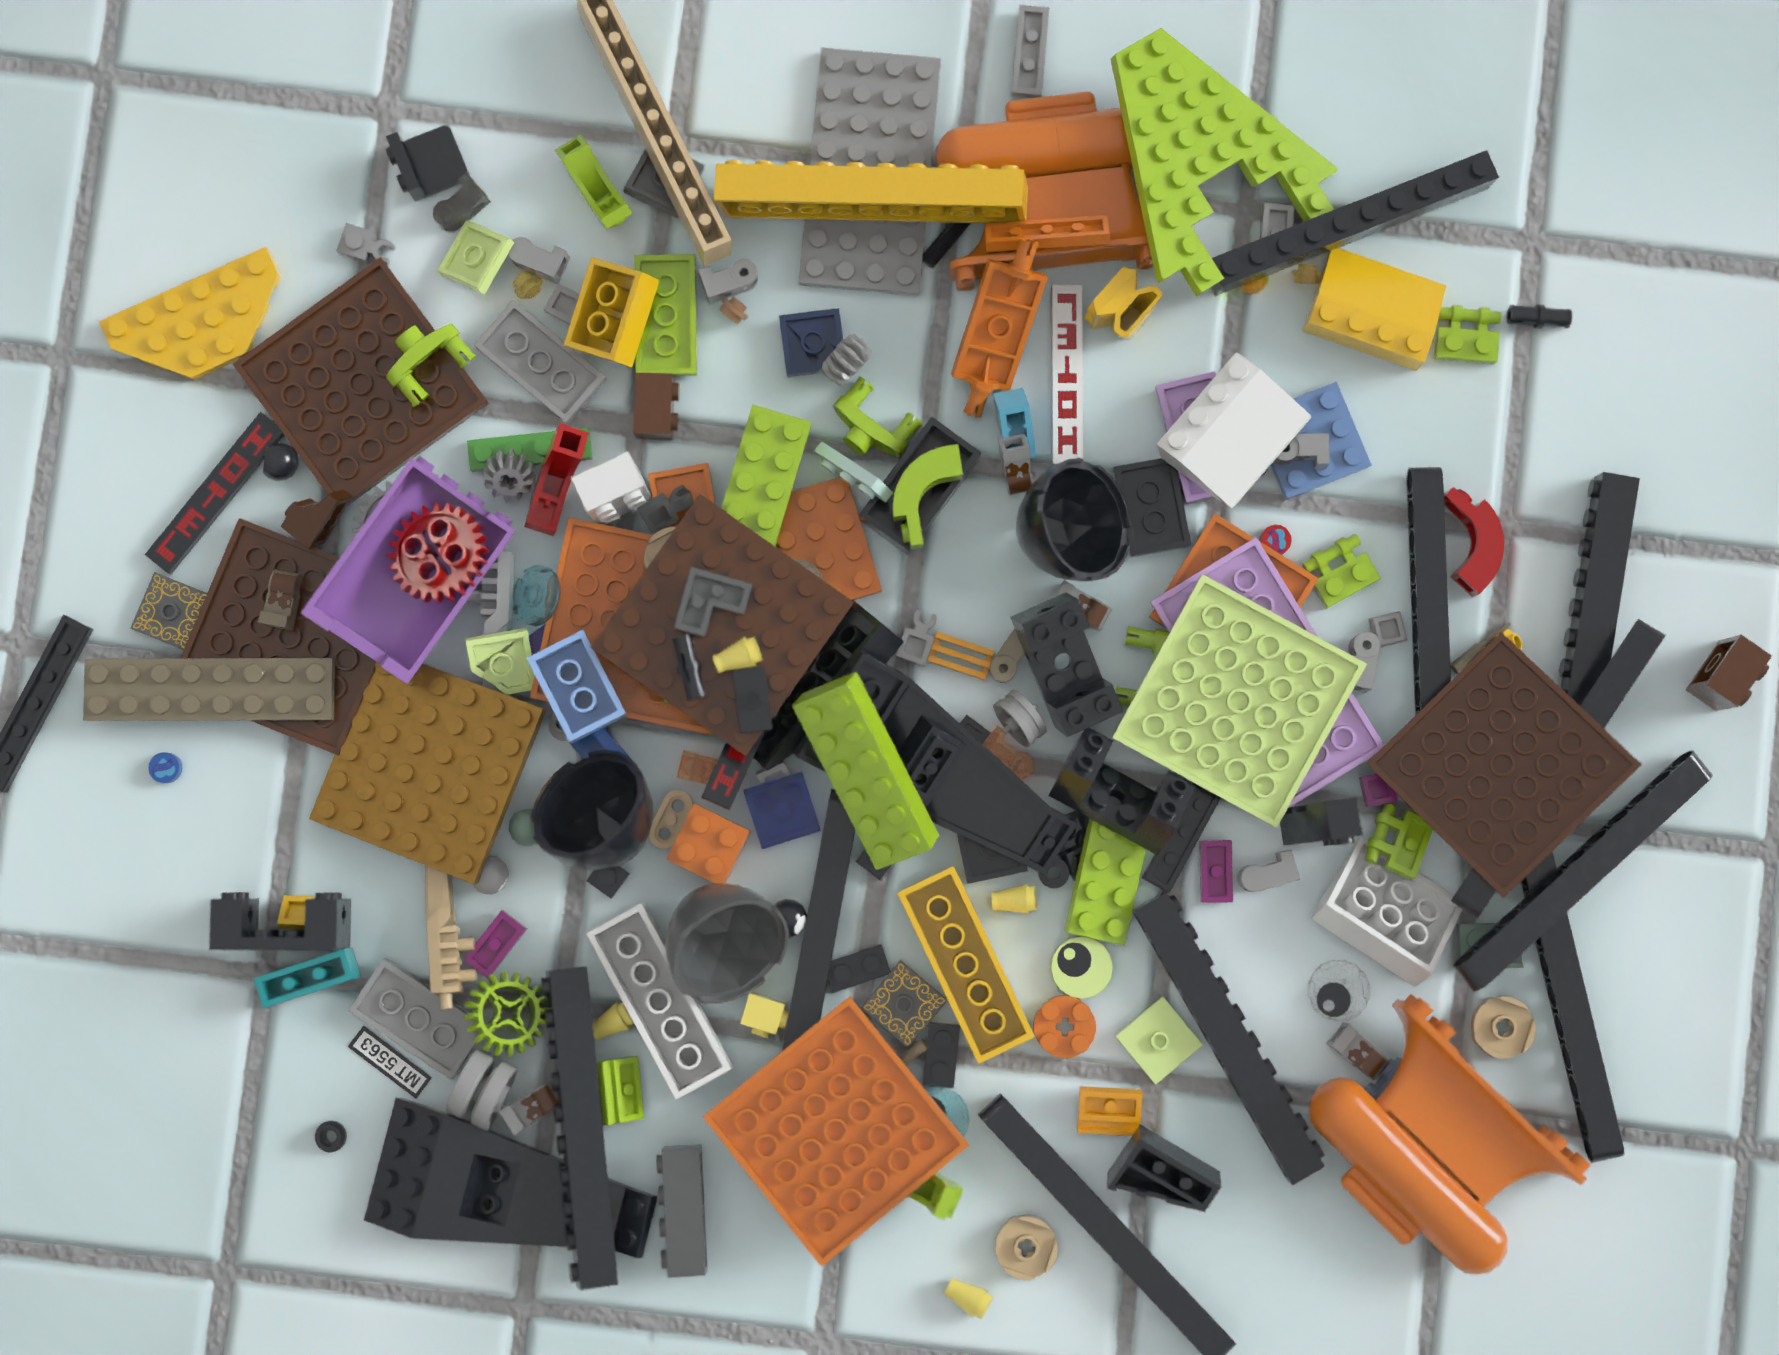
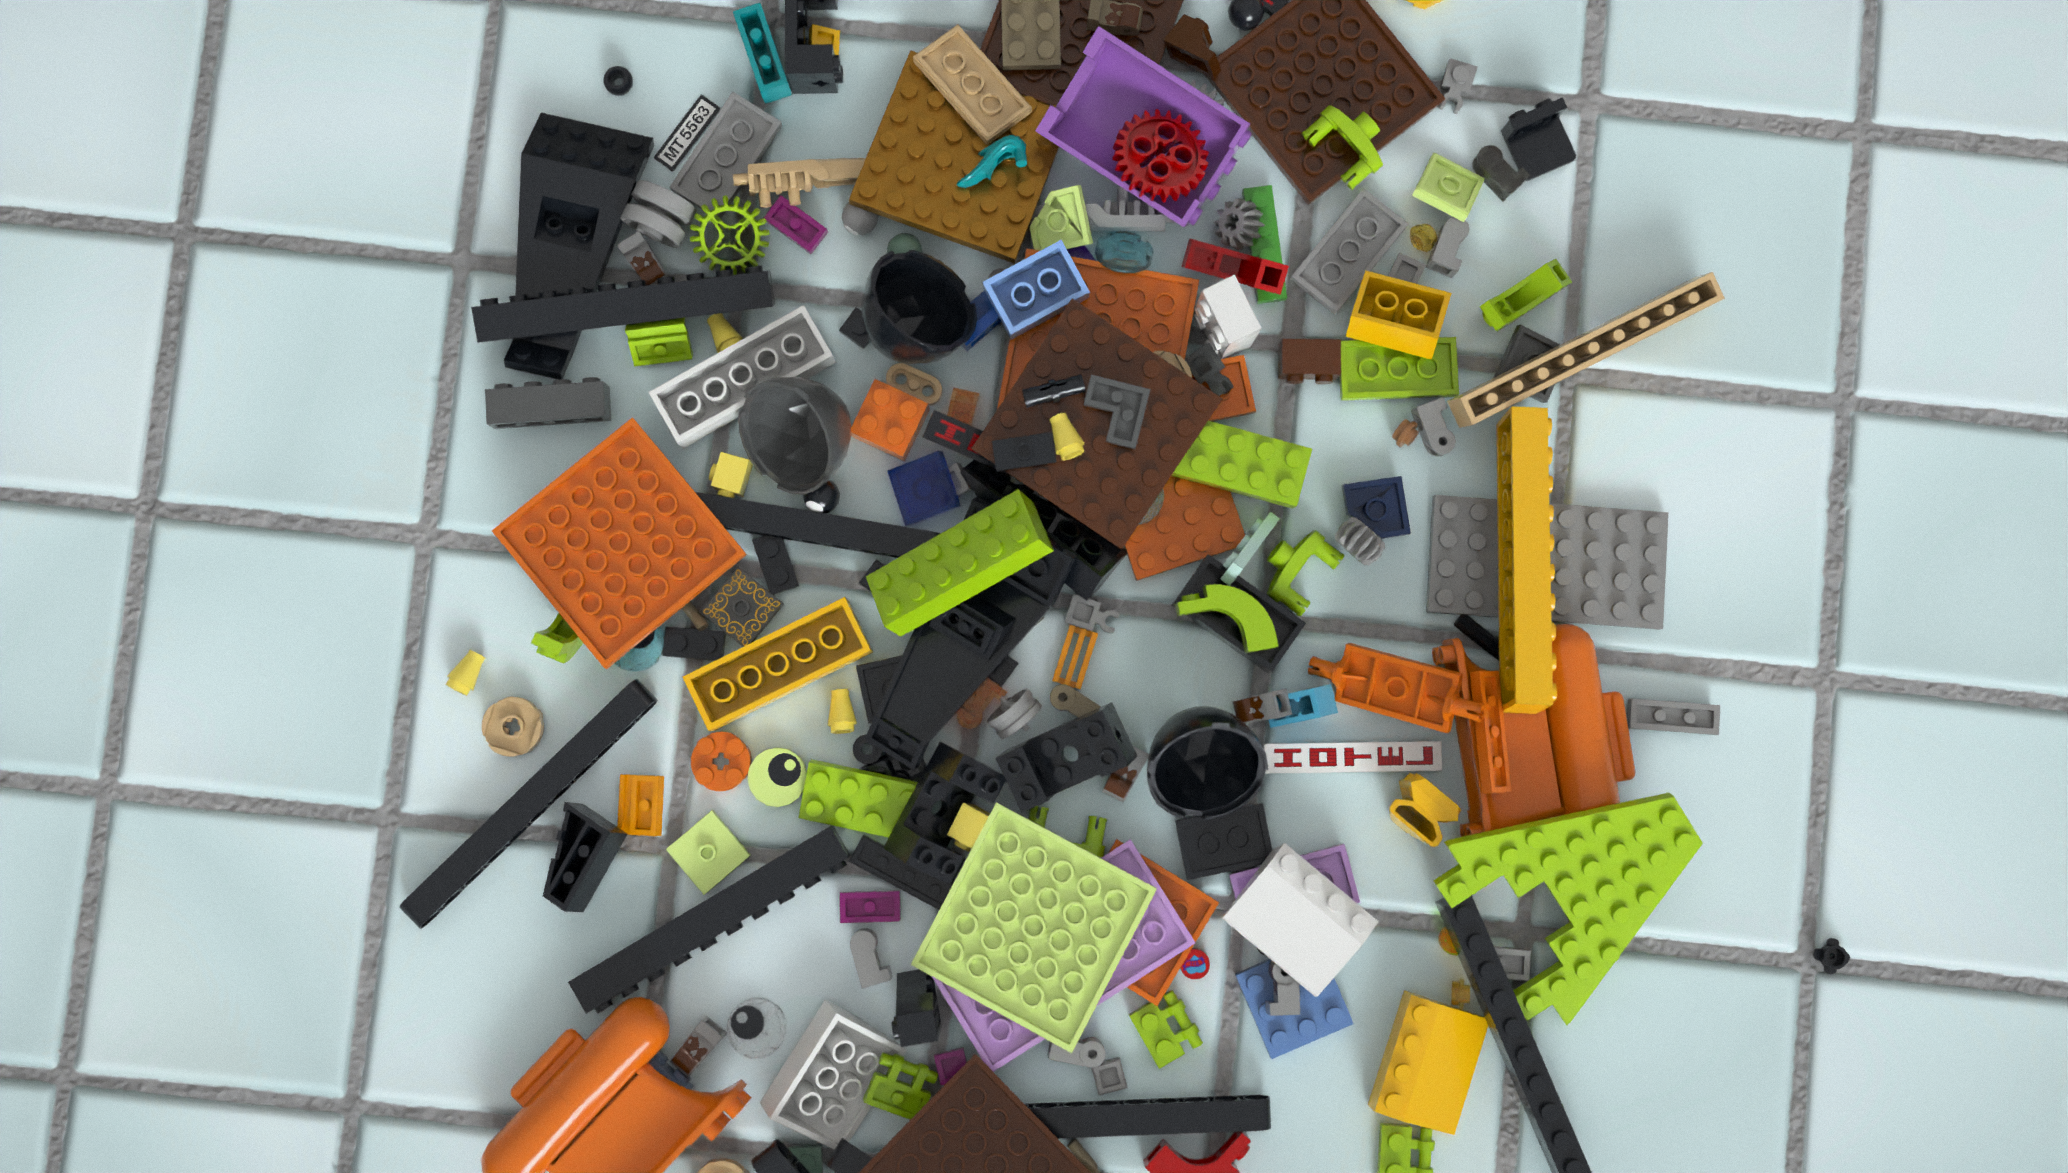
camera: 85 degrees right, 0 degrees up
(350, 752) = (972, 84): none -> tan tile
(430, 729) = (1002, 149): none -> teal piece
(1135, 767) = (968, 825): none -> light yellow brick

